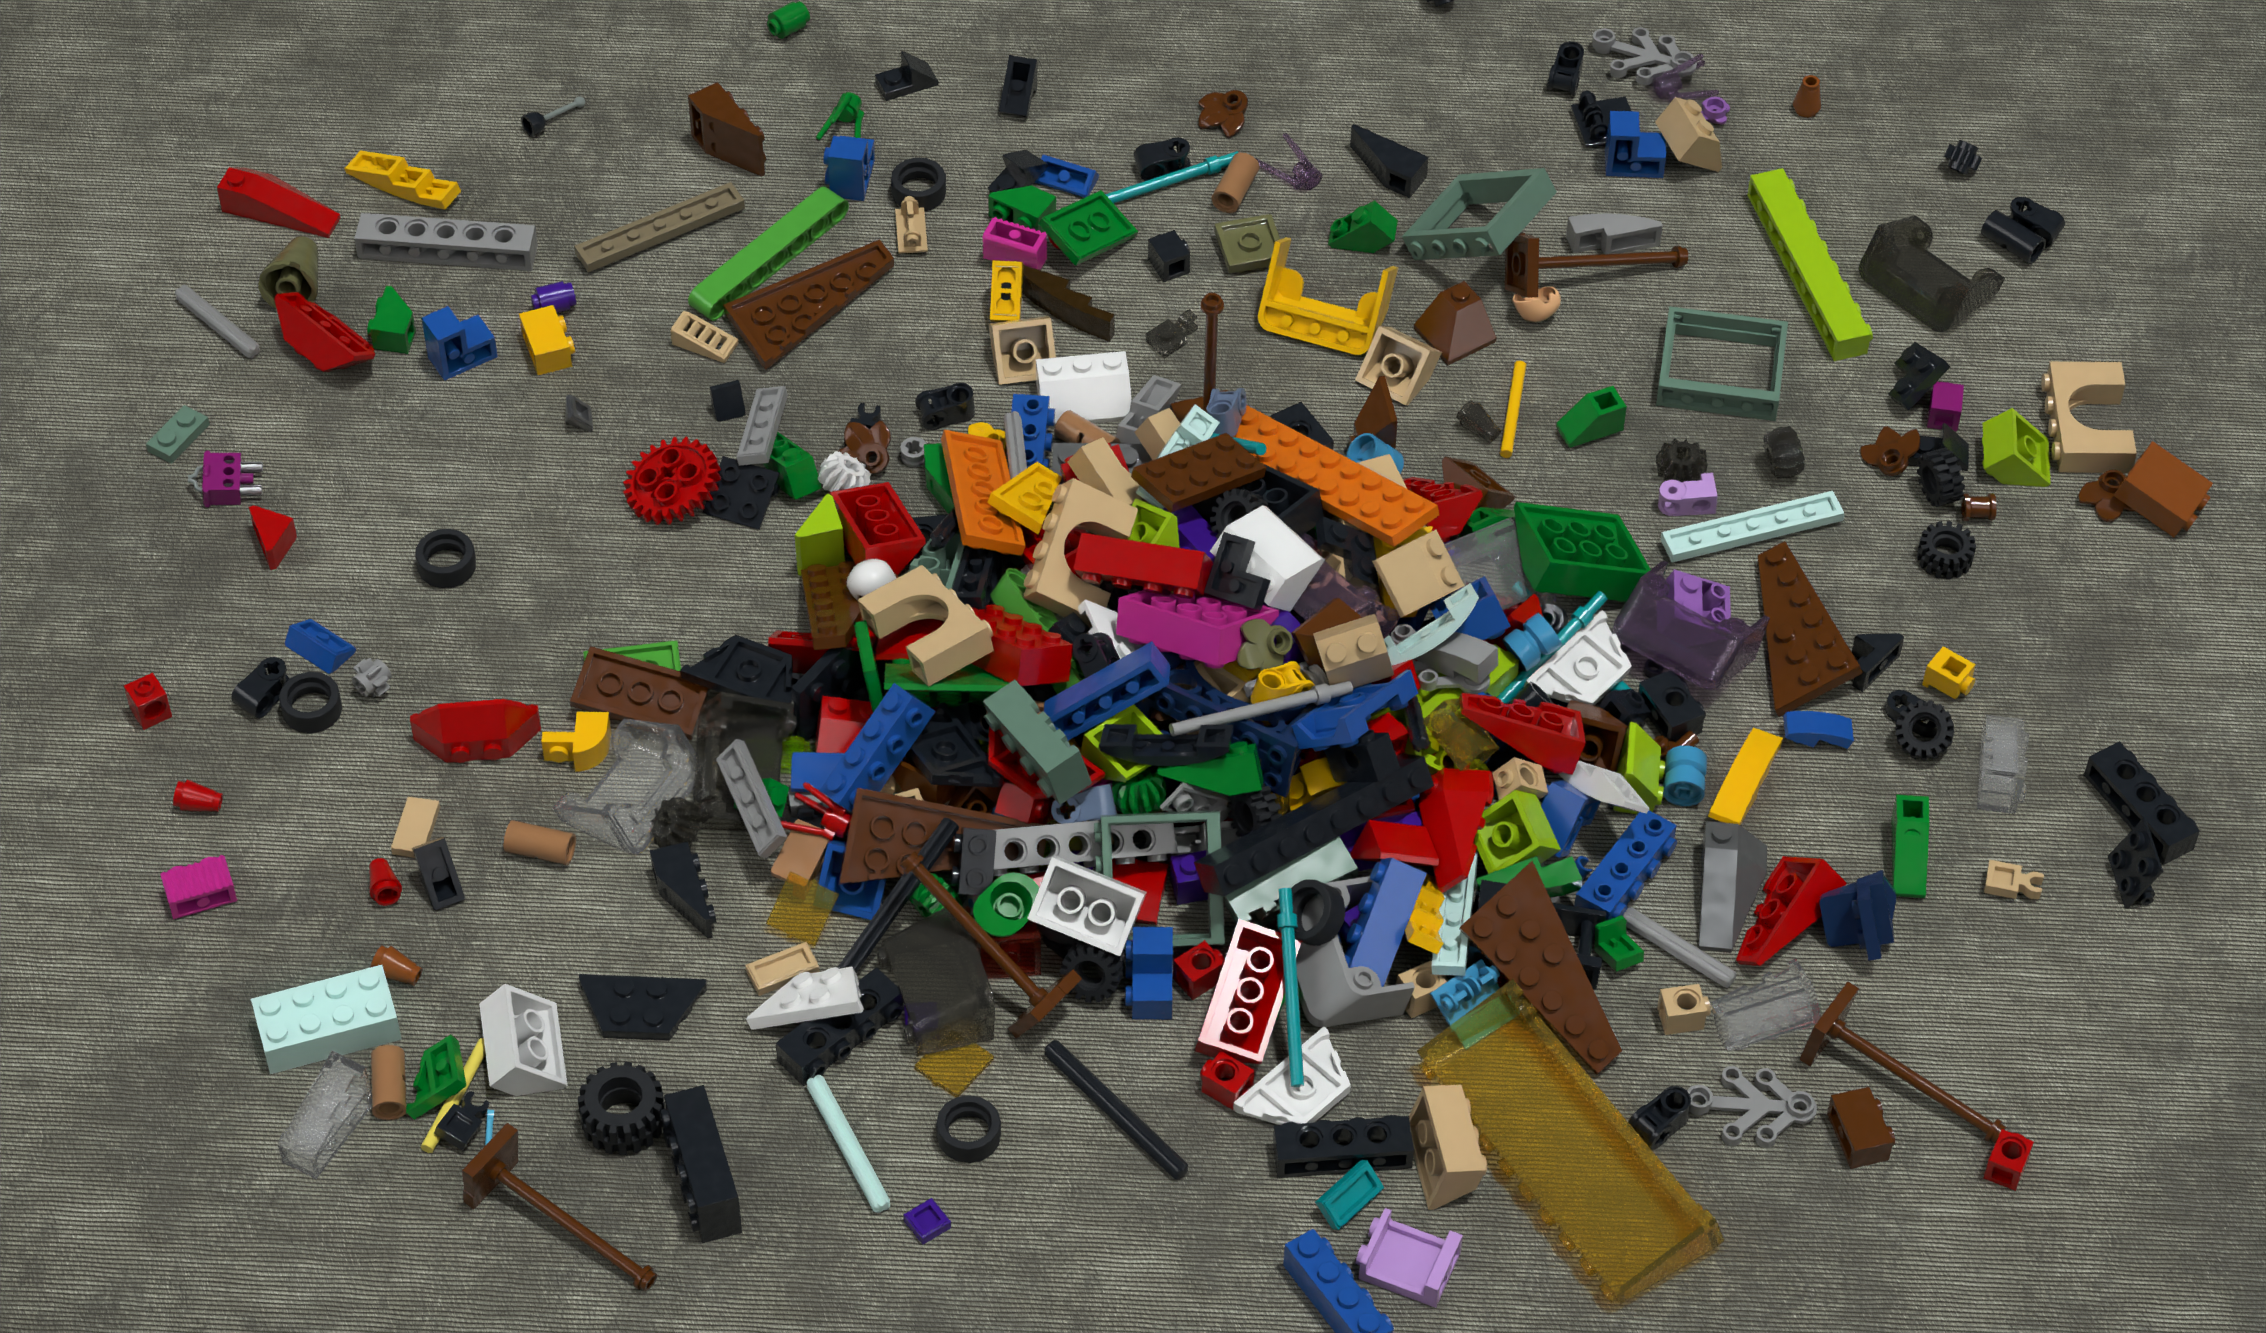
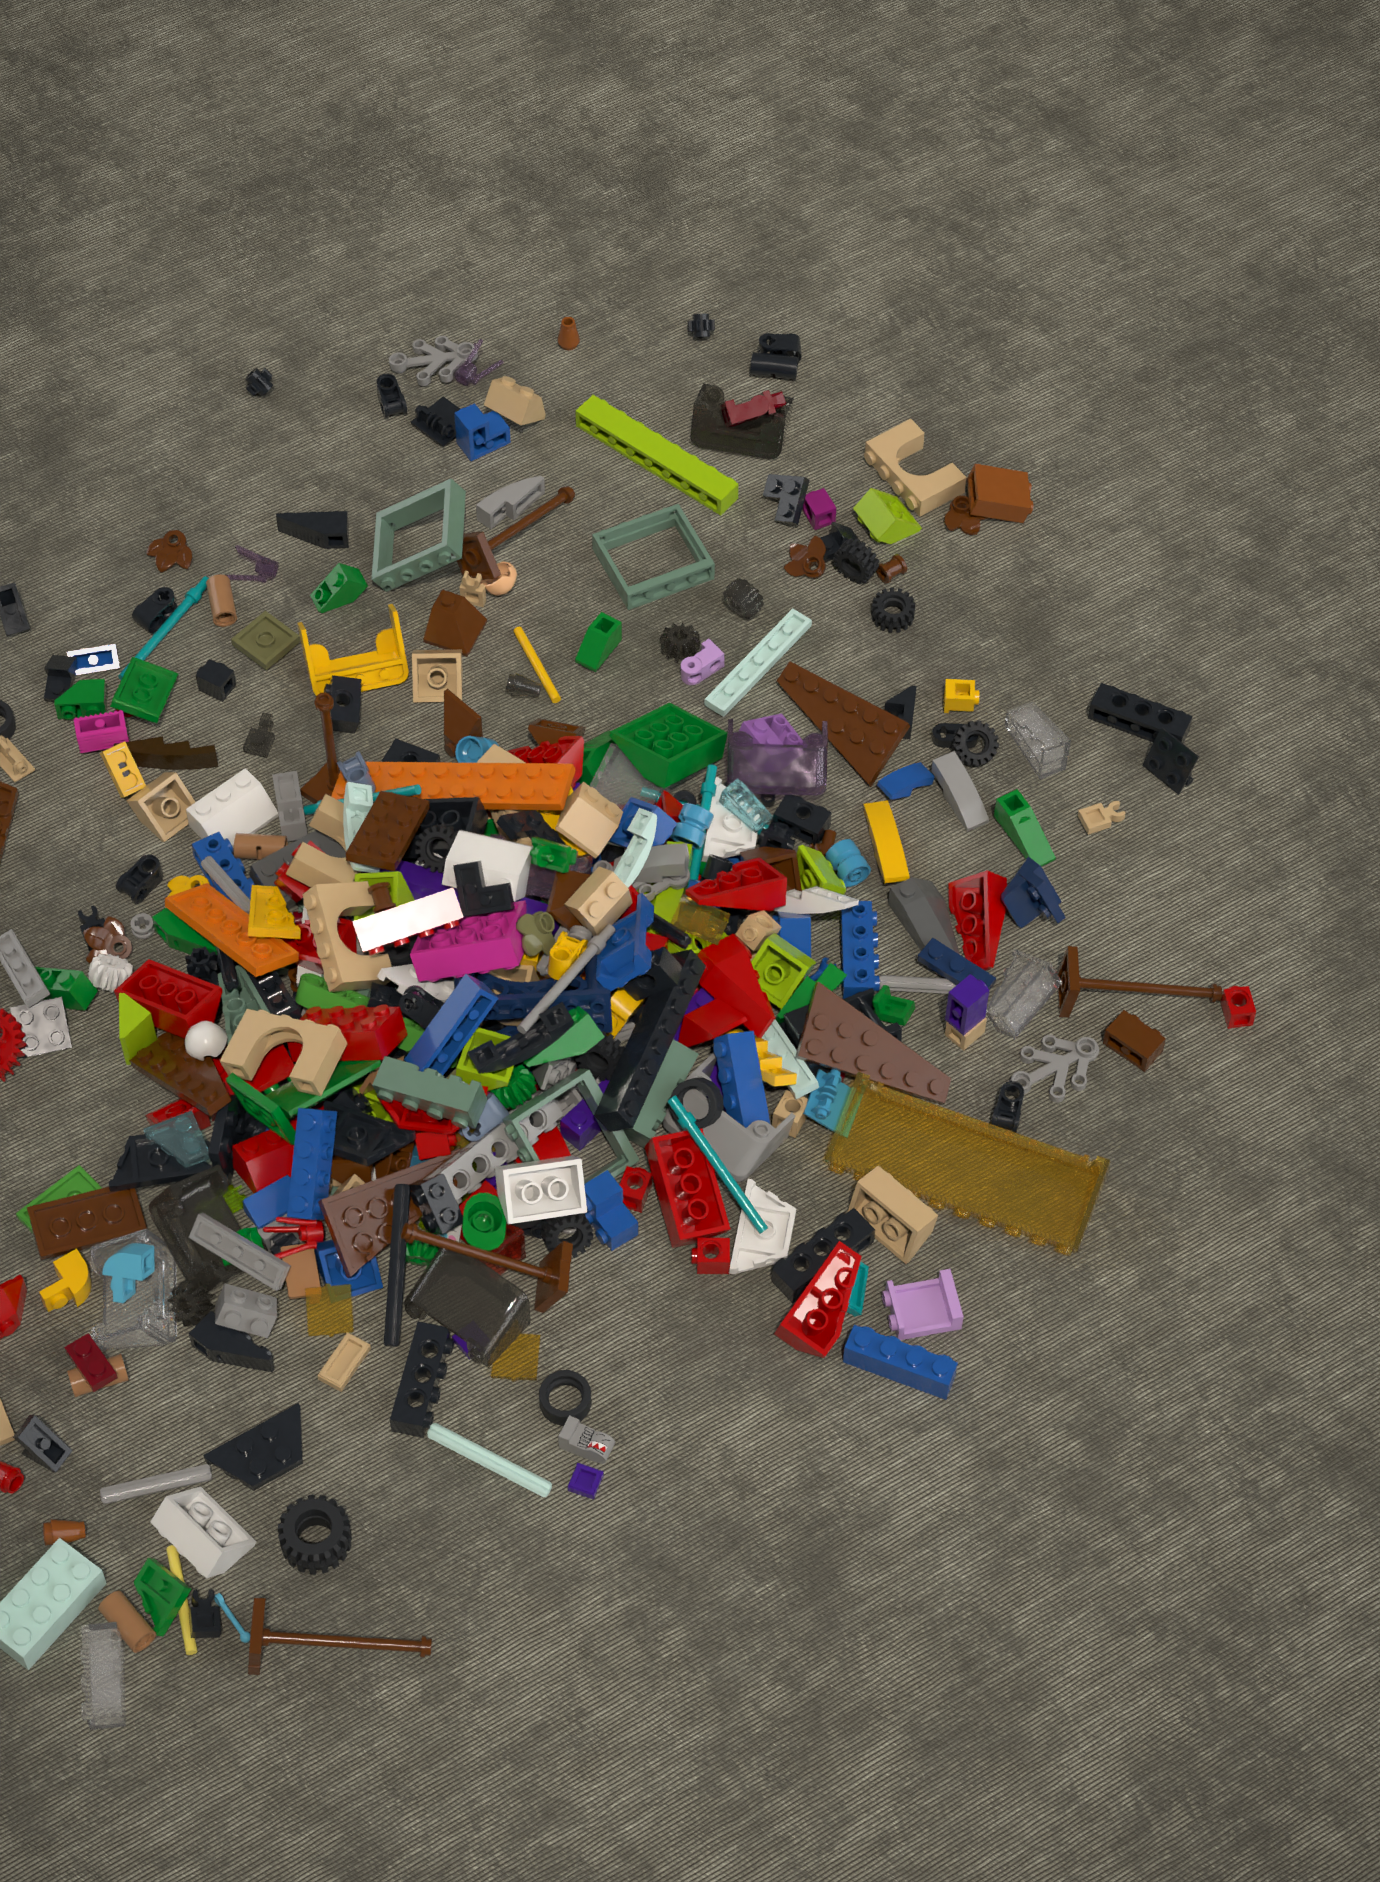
camera: 35 degrees left, 5 degrees up
(515, 975) = (155, 1484): none -> light grey axle
(536, 823) = (91, 1362): none -> dark red plate
(637, 754) = (127, 1265): none -> medium azure brick
(701, 1164) = (406, 1539): black brick -> none
(719, 860) = (246, 1310): none -> light grey brick
(780, 661) = (180, 1138): none -> clear light blue wing
(810, 998) = (389, 1371): white wing -> none
(931, 509) = (201, 962): none -> black gear
(954, 1180) = (585, 1441): none -> light grey leg
(1116, 1109) = (652, 1321): black axle -> none
(1140, 527) = (381, 897): none -> reddish brown bush
(1271, 357) = (348, 692): none -> black brick
(1292, 1191) = (820, 1310): none -> red wedge
(1338, 578) = (552, 855): none -> green hips
(1498, 300) = (473, 590): none -> tan plate
(1610, 635) = (744, 794): none -> clear light blue slope
(1687, 978) = (967, 1004): none -> dark purple brick
(1715, 110) = (513, 372): medium lavender plate -> none
(1717, 944) = (951, 964): none -> dark blue plate
(1870, 770) = (959, 791): none -> light grey slope
(1945, 264) = (759, 405): none -> dark red hips

